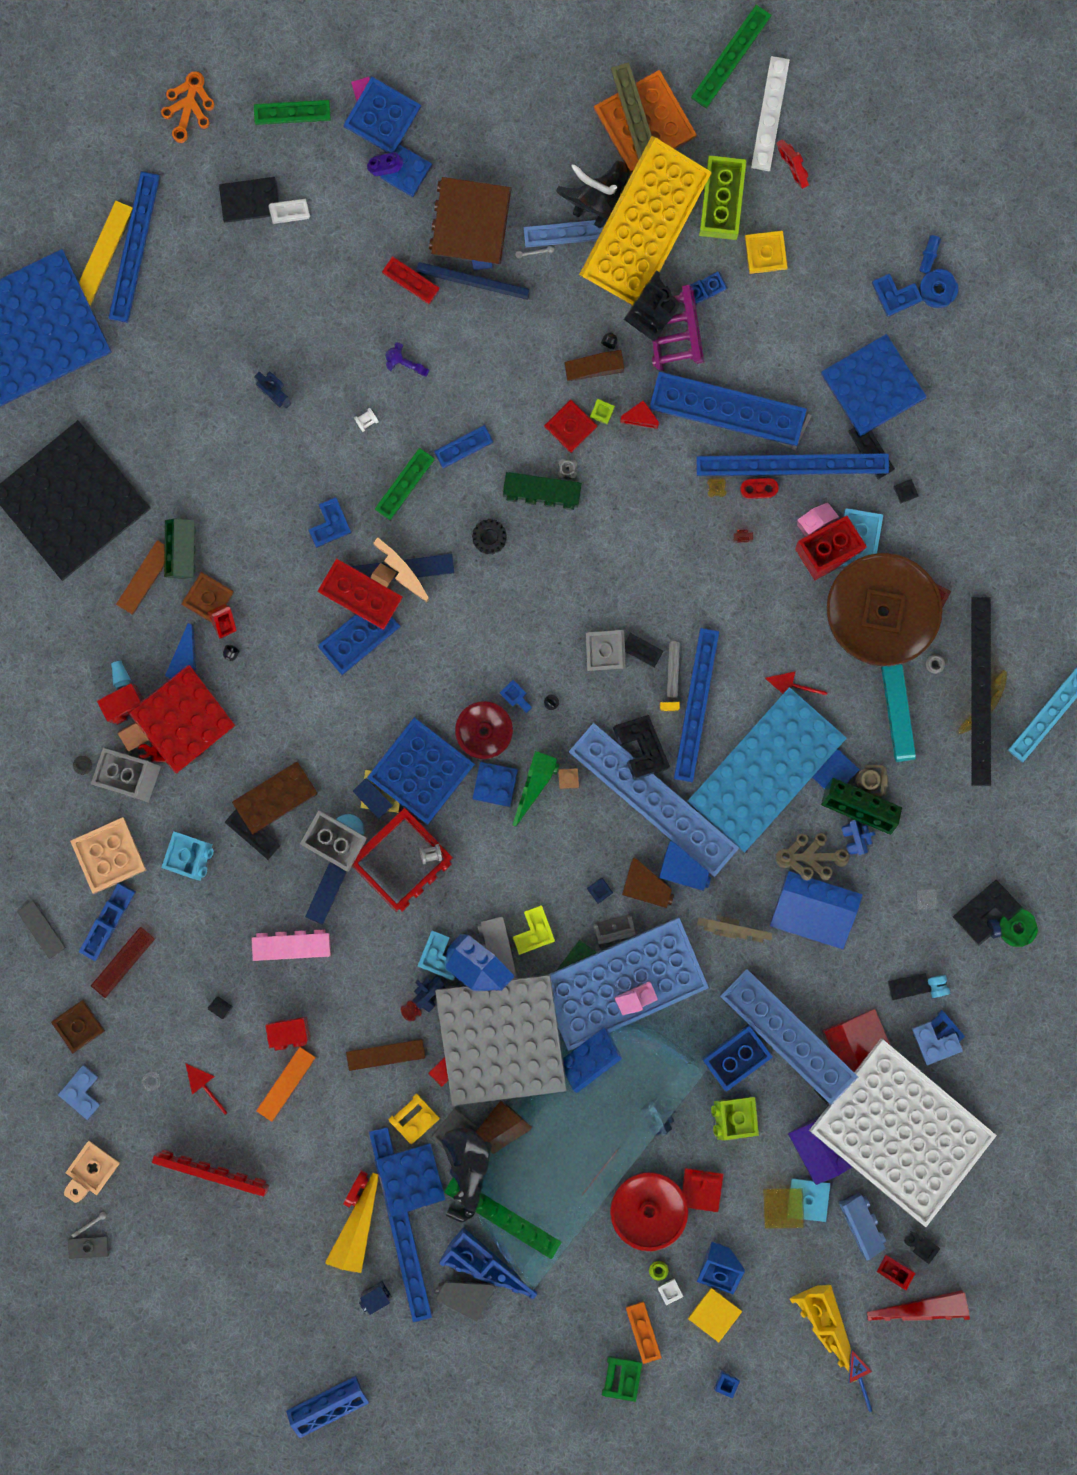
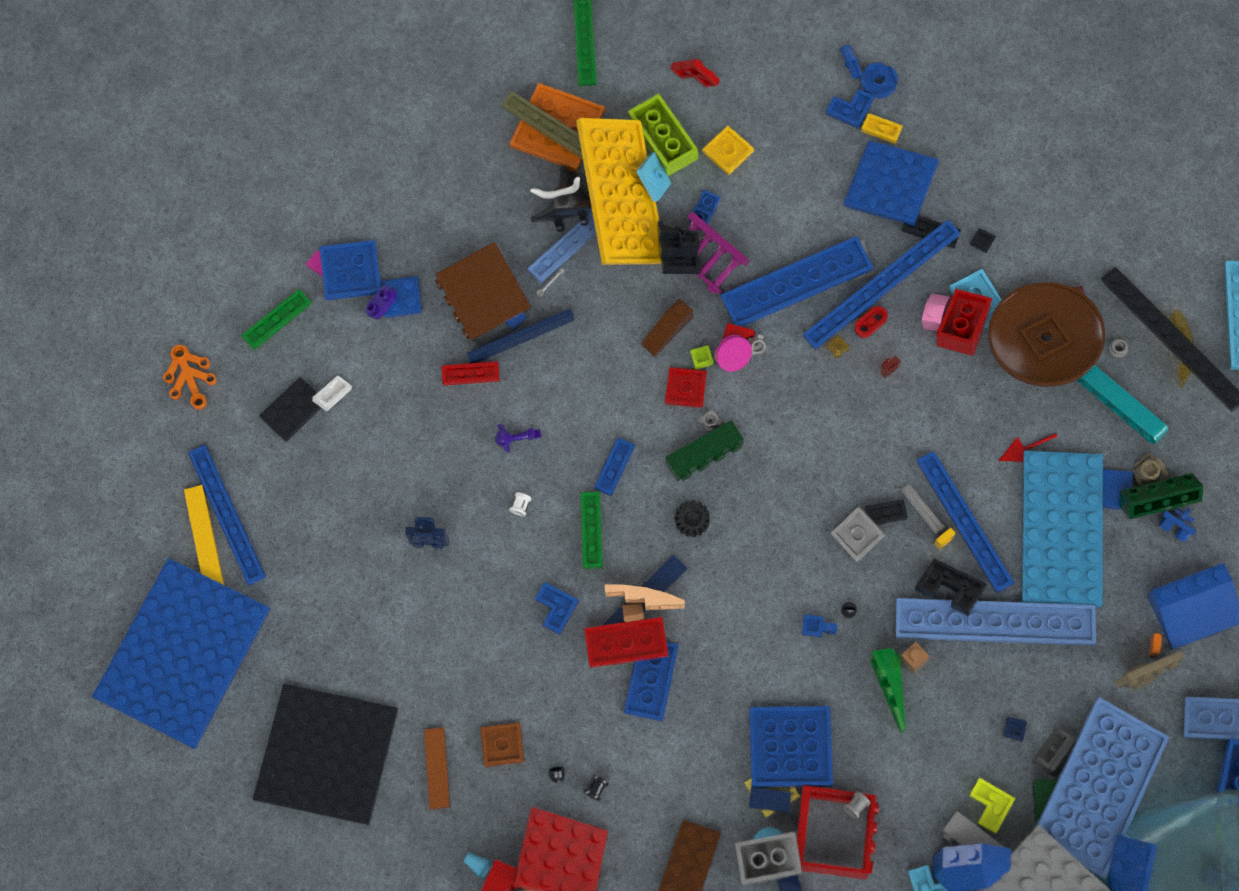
camera: 30 degrees left, 15 degrees down
(179, 548) = (448, 721): dark green brick -> none
(184, 653) = (519, 804): blue slope -> none
(222, 620) = (530, 751): red slope -> none
(251, 686) = (596, 788): none -> black bush
(469, 728) = (815, 658): dark red dish -> none
(495, 784) = (858, 710): blue plate -> none
(609, 340) = (663, 302): black hinge -> none
(628, 428) = (733, 353): none -> dark pink tile
(636, 998) = (1122, 790): bright pink slope -> none
(646, 886) = (1048, 694): reddish brown slope -> none
(653, 439) = (760, 347): none -> light grey plate
(683, 869) = (1066, 657): blue slope -> none
(684, 229) = (653, 177): none -> medium azure plate
(758, 913) = (1155, 645): none -> orange tile
(770, 113) = (647, 54): white plate -> none
(811, 858) = (1140, 583): dark tan plant -> none
(905, 332) = (881, 128): none -> yellow plate

